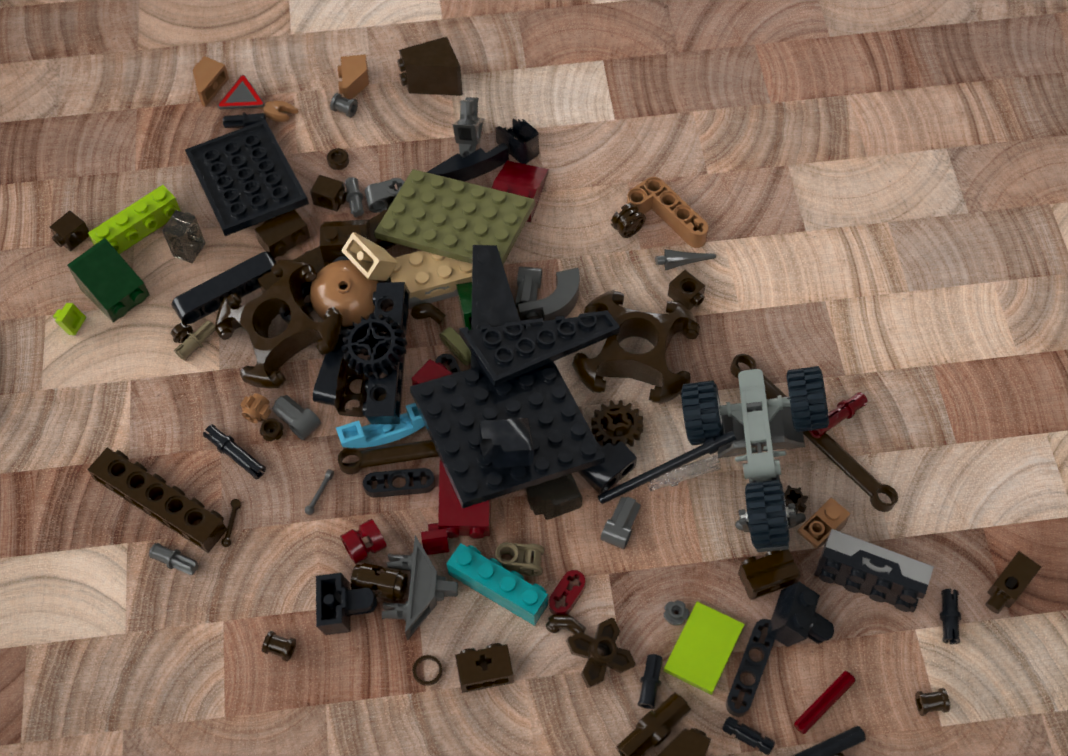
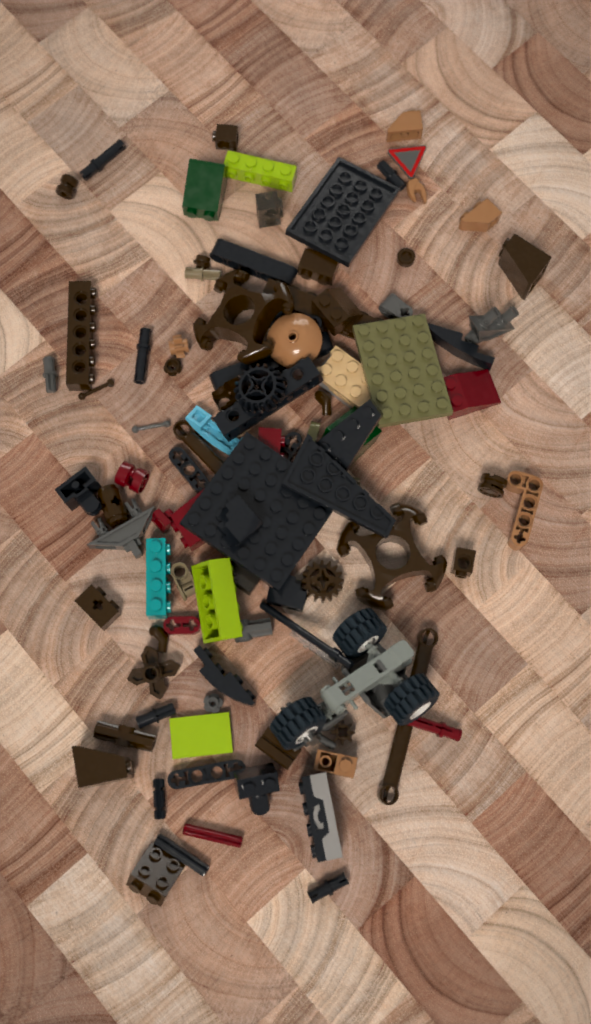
camera: 55 degrees right, 15 degrees up
(69, 318) = (164, 188): lime tile -> none
(279, 645) = (35, 476): dark brown bush -> none
(300, 420) = (190, 380): dark grey piece -> none
(328, 193) = (371, 272): dark brown brick -> none
(344, 105) = (451, 228): dark grey bush -> none
(354, 196) = (381, 291): dark grey axle -> none
(369, 257) = (325, 338): tan slope -> none
(427, 657) = (78, 564): dark brown piece -> none
(523, 133) = (502, 379): black piece -> none
(528, 283) = (394, 451): dark grey piece -> none
(559, 303) = (389, 482): dark grey arch -> none
(569, 531) = (217, 600): none -> lime brick
(667, 584) = (229, 684): none -> black slope
(677, 258) = (486, 538): dark grey piece -> none
(932, 701) = (256, 907): dark brown bush -> none
(1011, 582) = (385, 917): dark brown torso -> none

